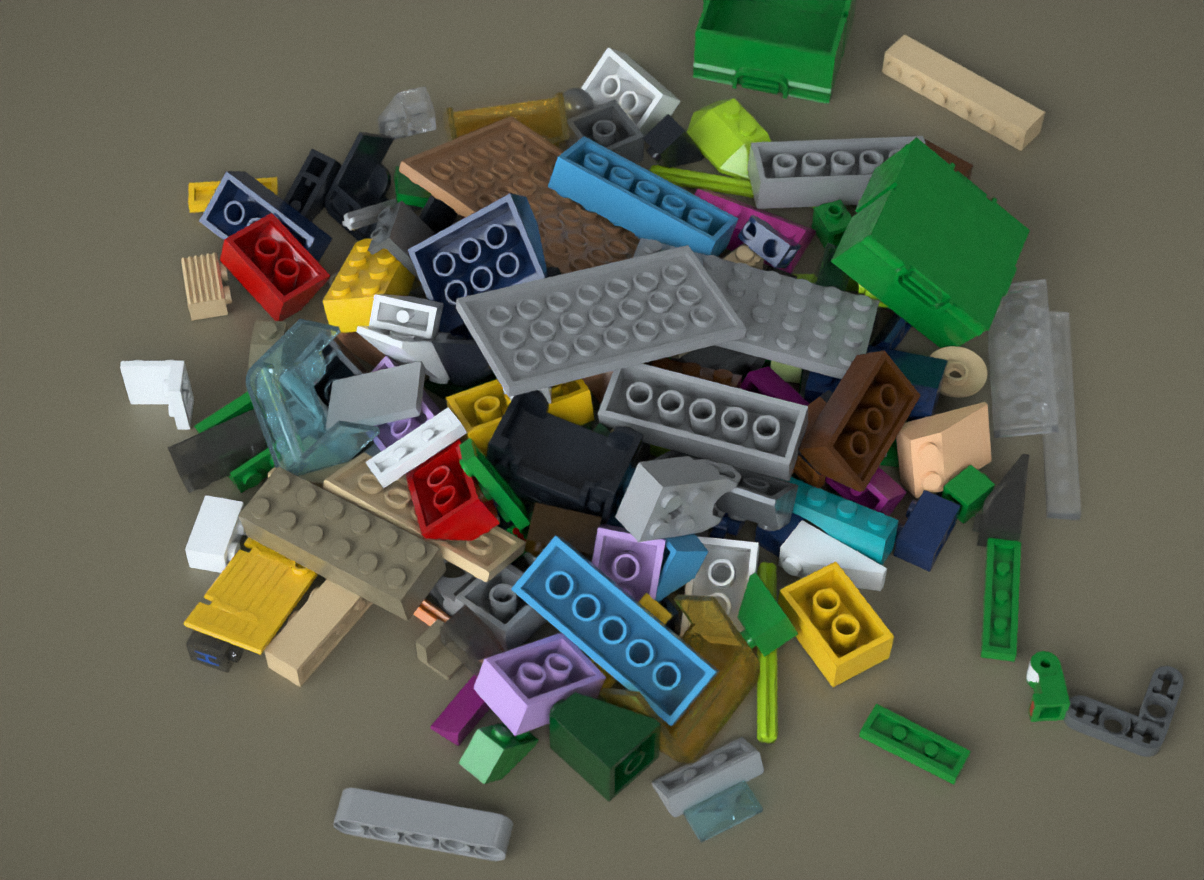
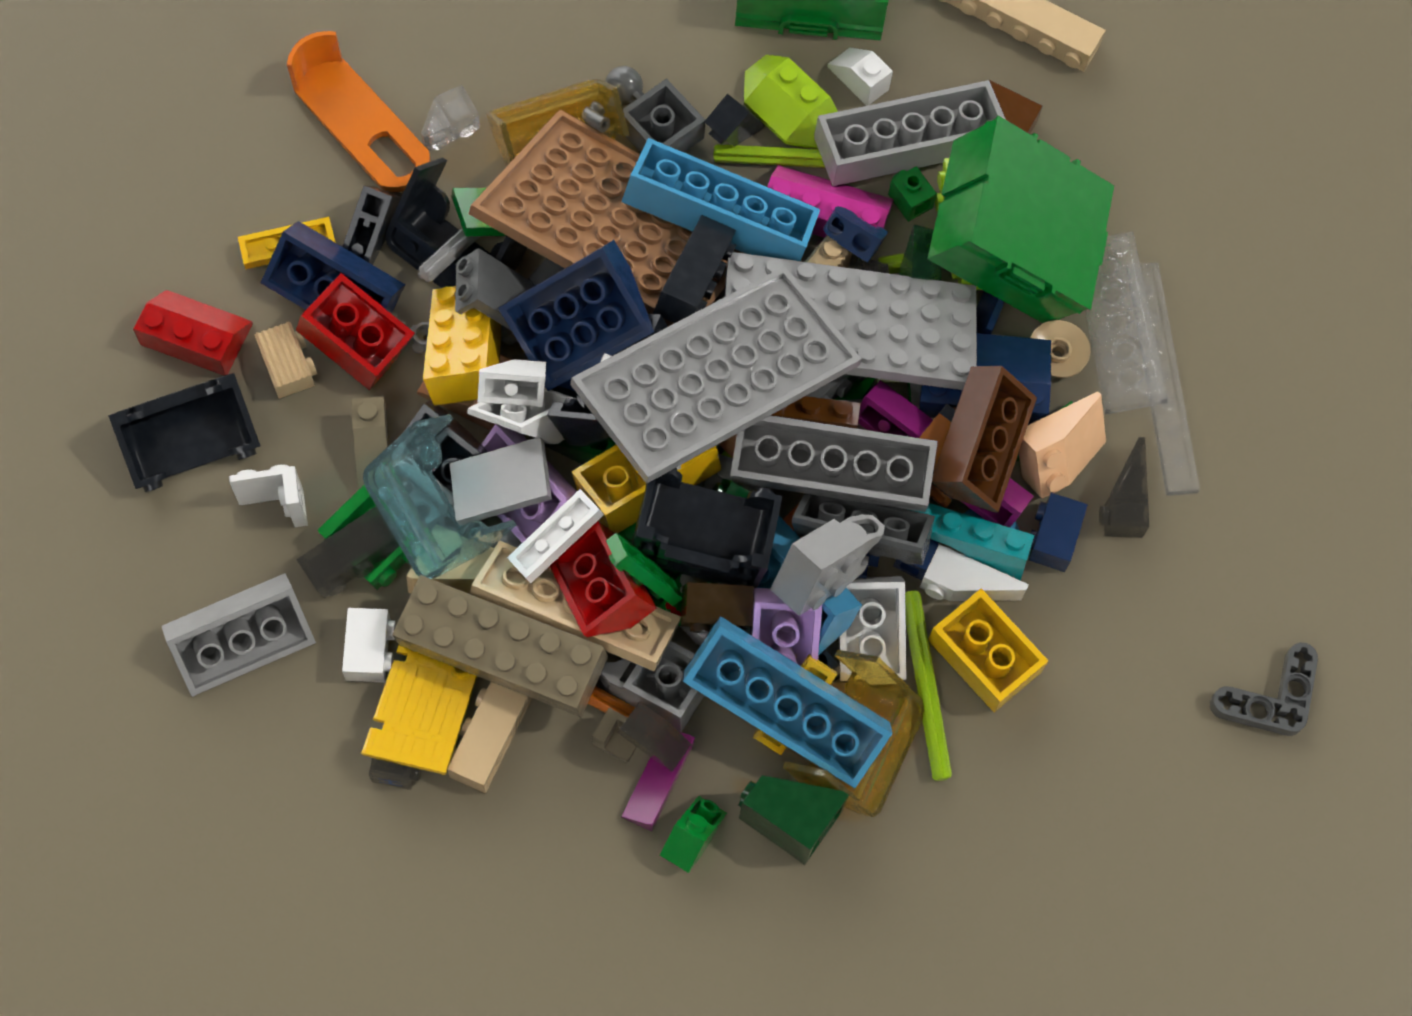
camera: 15 degrees left, 15 degrees up
(94, 330) = (184, 431): none -> black windscreen
(96, 509) = (238, 634): none -> light grey slope
(124, 255) = (192, 331): none -> red slope
(314, 89) = (350, 108): none -> orange piece
(423, 824) = (637, 921): light grey beam -> none
(533, 677) = (720, 764): lavender brick -> none
(543, 126) = (594, 117): none -> dark grey arm
(605, 240) = (695, 270): none -> black brick
(632, 87) = (671, 52): white slope -> none
(708, 776) = (894, 824): light grey slope -> none
(722, 811) = (913, 857): clear light blue slope -> none
(763, 618) = (920, 657): green slope -> none
(805, 122) = (862, 73): none -> white slope
(915, 744) = (1080, 761): green plate -> none
(969, 491) = (1091, 484): green brick -> none
(1001, 600) = (1137, 594): green plate -> none
(1049, 686) = (1195, 682): green leg -> none

